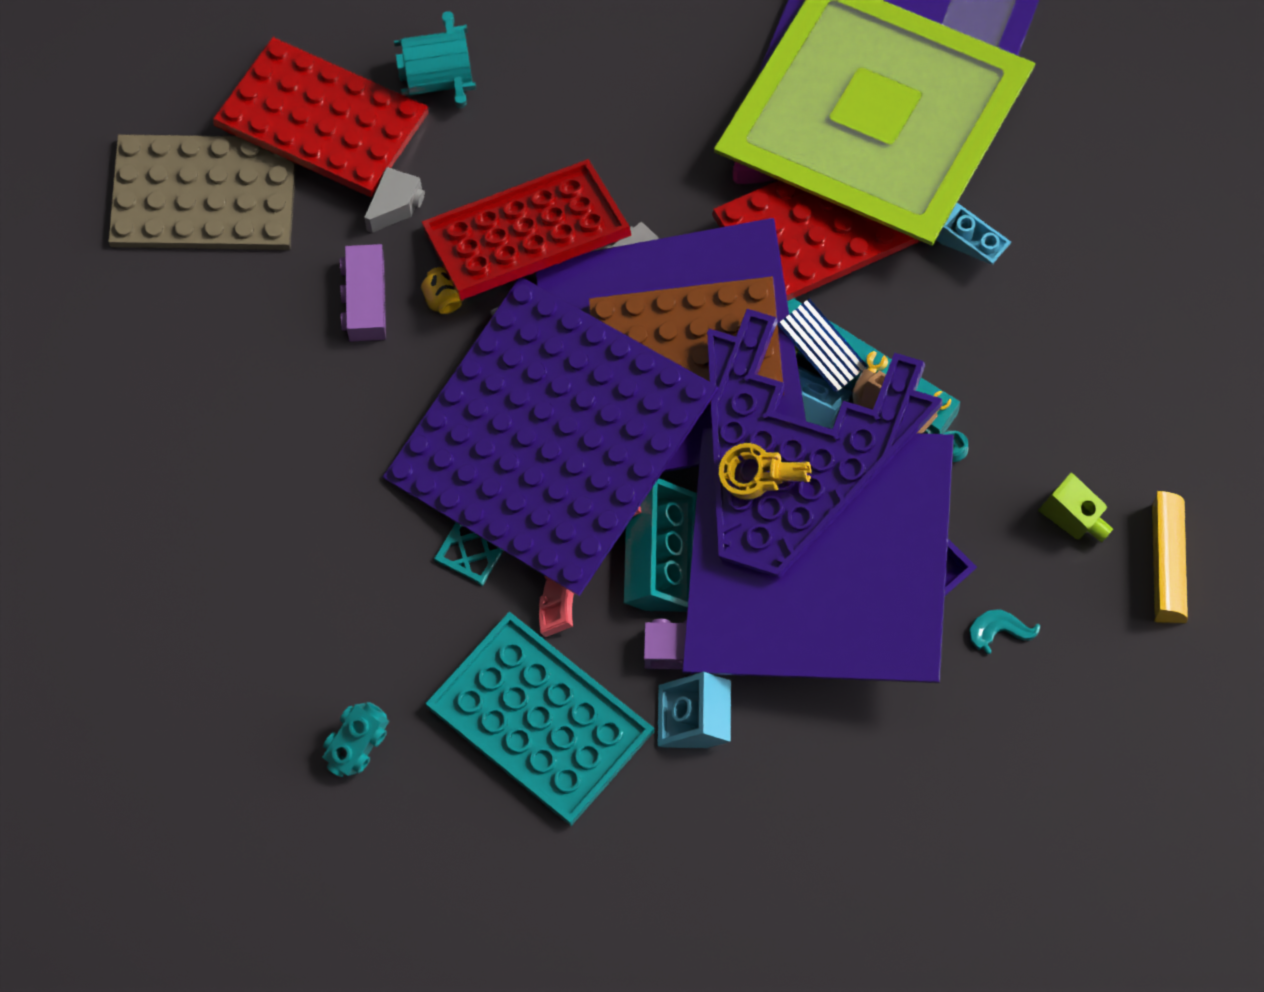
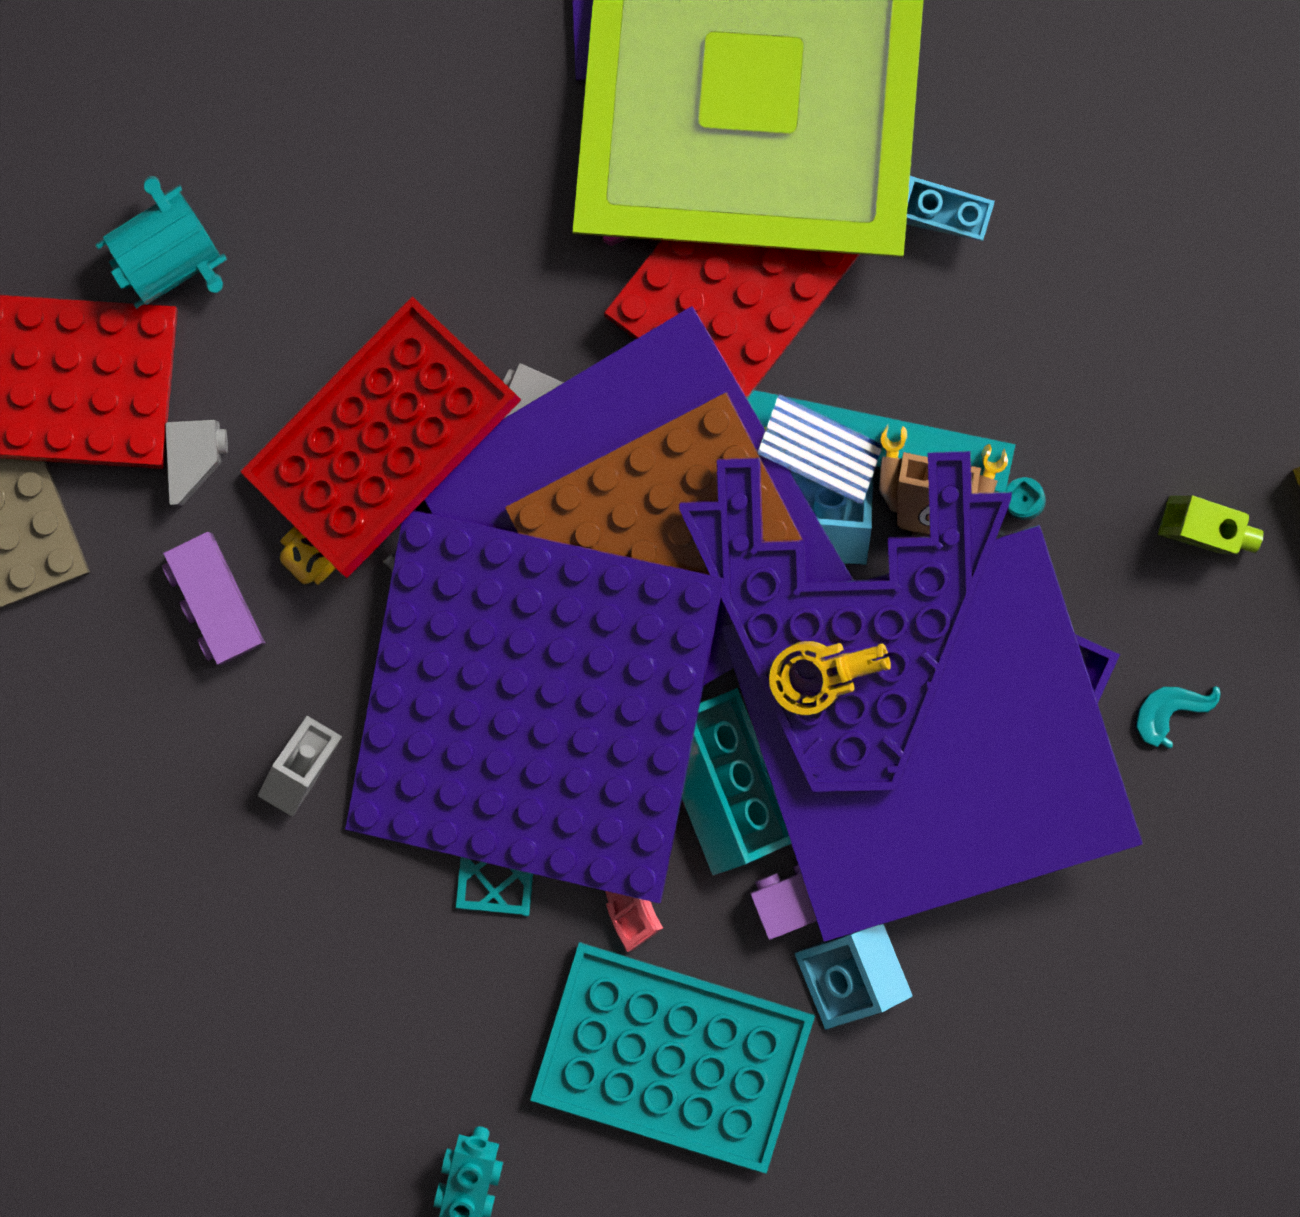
camera: 25 degrees left, 20 degrees up
(369, 420) = (299, 766): none -> light grey slope

